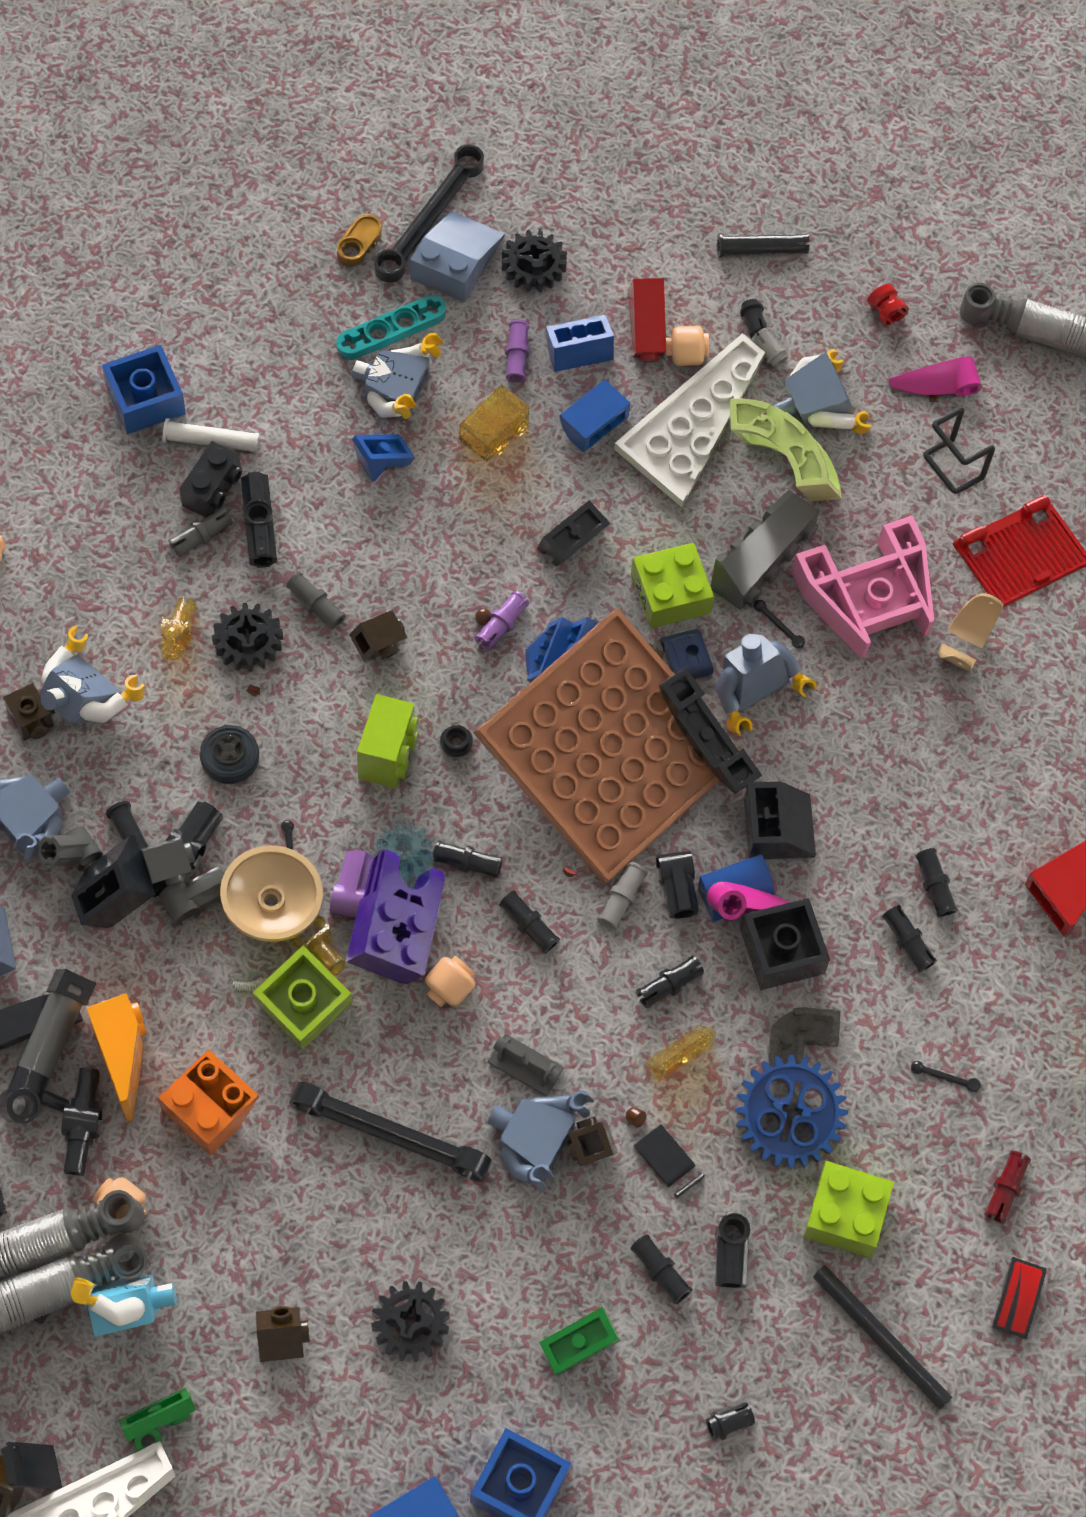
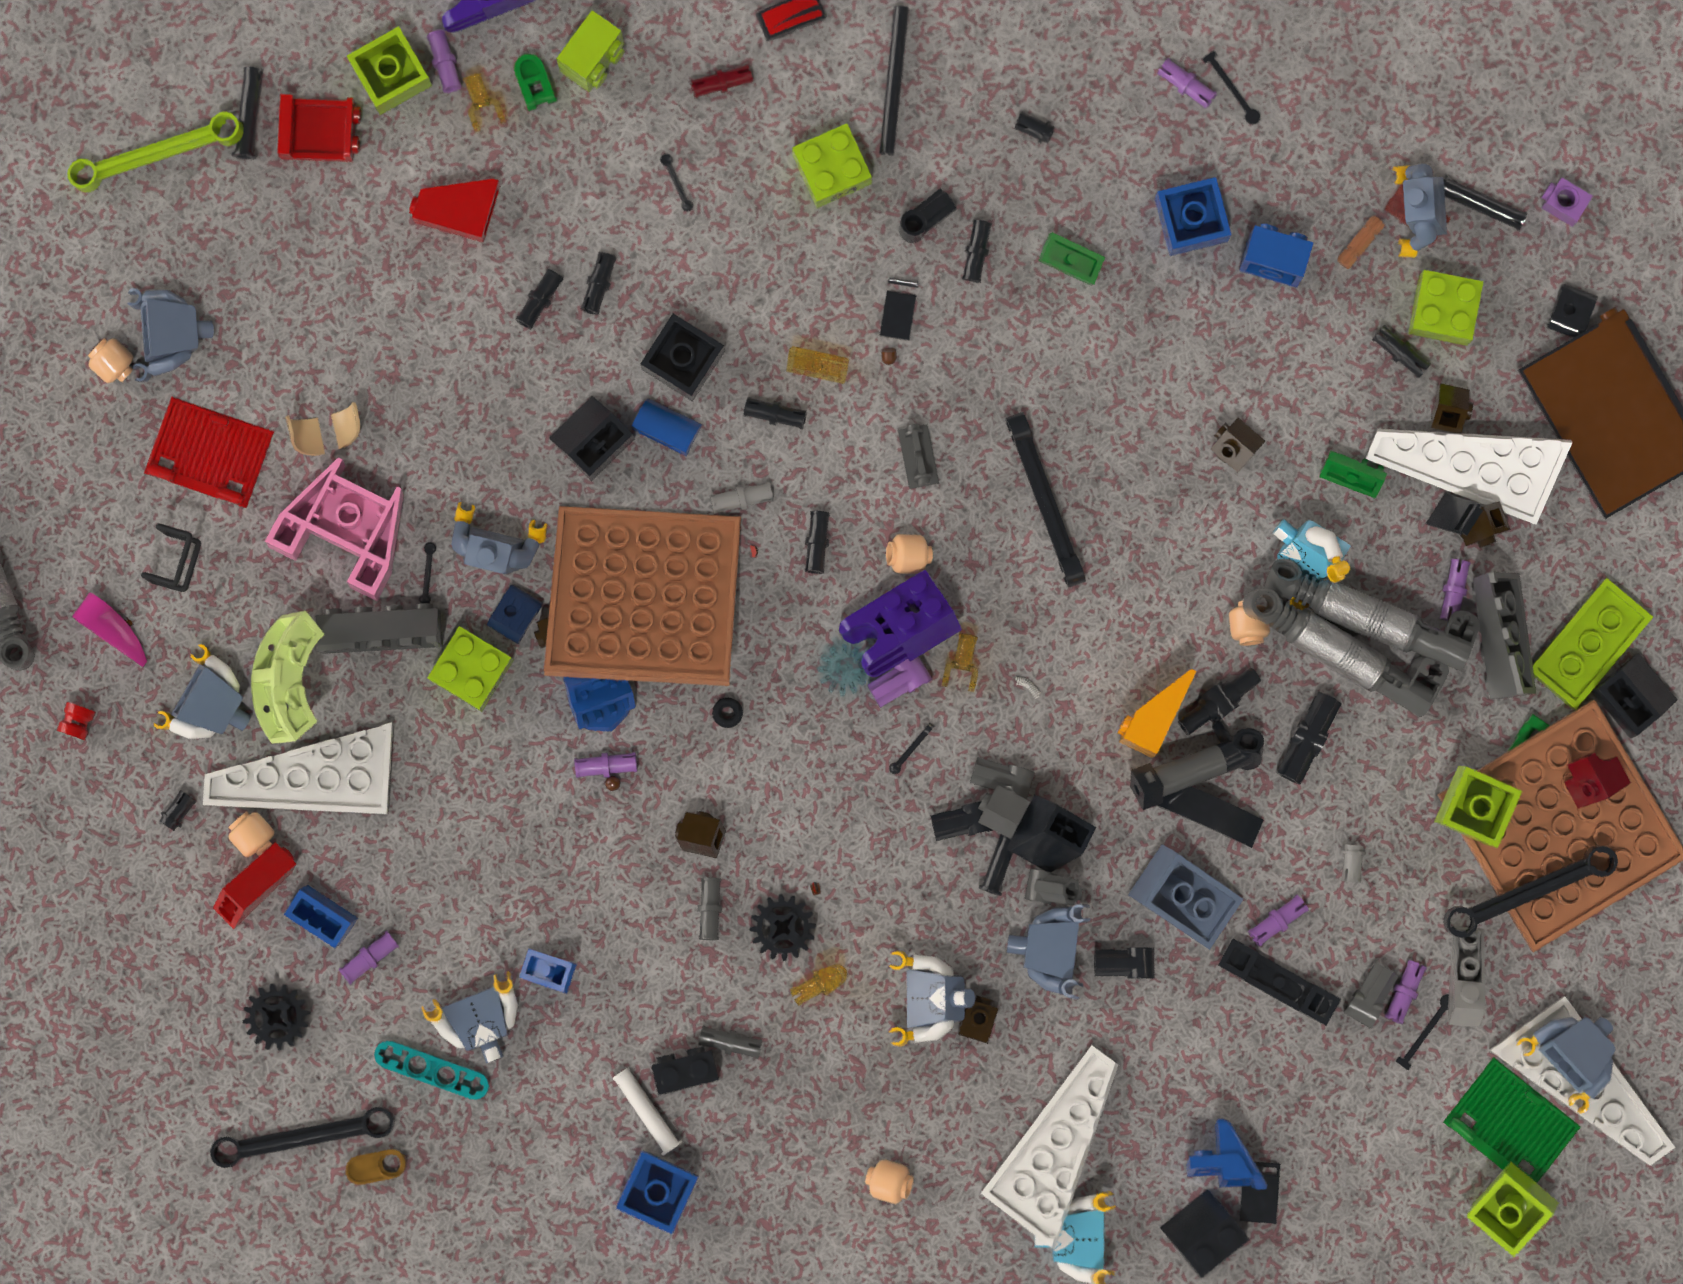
camera: 130 degrees left, 20 degrees up
(208, 1102) = (1135, 629): orange slope -> none
(228, 742) = (874, 849): black wheel -> none
(258, 505) = (669, 1025): black piece -> none
(275, 875) = (959, 701): tan dish -> none
(302, 997) = (1011, 635): lime brick -> none
(387, 741) = (779, 749): lime brick -> none
(424, 1323) = (1147, 361): black gear -> none
(454, 255) = (320, 1082): sand blue slope -> none
(467, 859) = (809, 624): black pin -> none
(494, 423) = (450, 912): clear yellow brick -> none
(537, 1134) = (963, 403): sand blue torso -> none
(573, 533) = (491, 775): black hinge -> none
(591, 1141) = (937, 362): dark brown brick -> none
(594, 415) = (375, 848): blue brick -> none
(678, 884) = (695, 472): black piece -> none
(706, 734) = (574, 534): black slope -> none
(742, 899) = (681, 413): dark pink piece -> none
(761, 244) = (102, 862): black pin -> none
(773, 352) = (195, 775): light grey pin -> none
(803, 1027) = (734, 303): clear smoke plate -> none
(821, 1121) = (809, 280): blue gear -> none

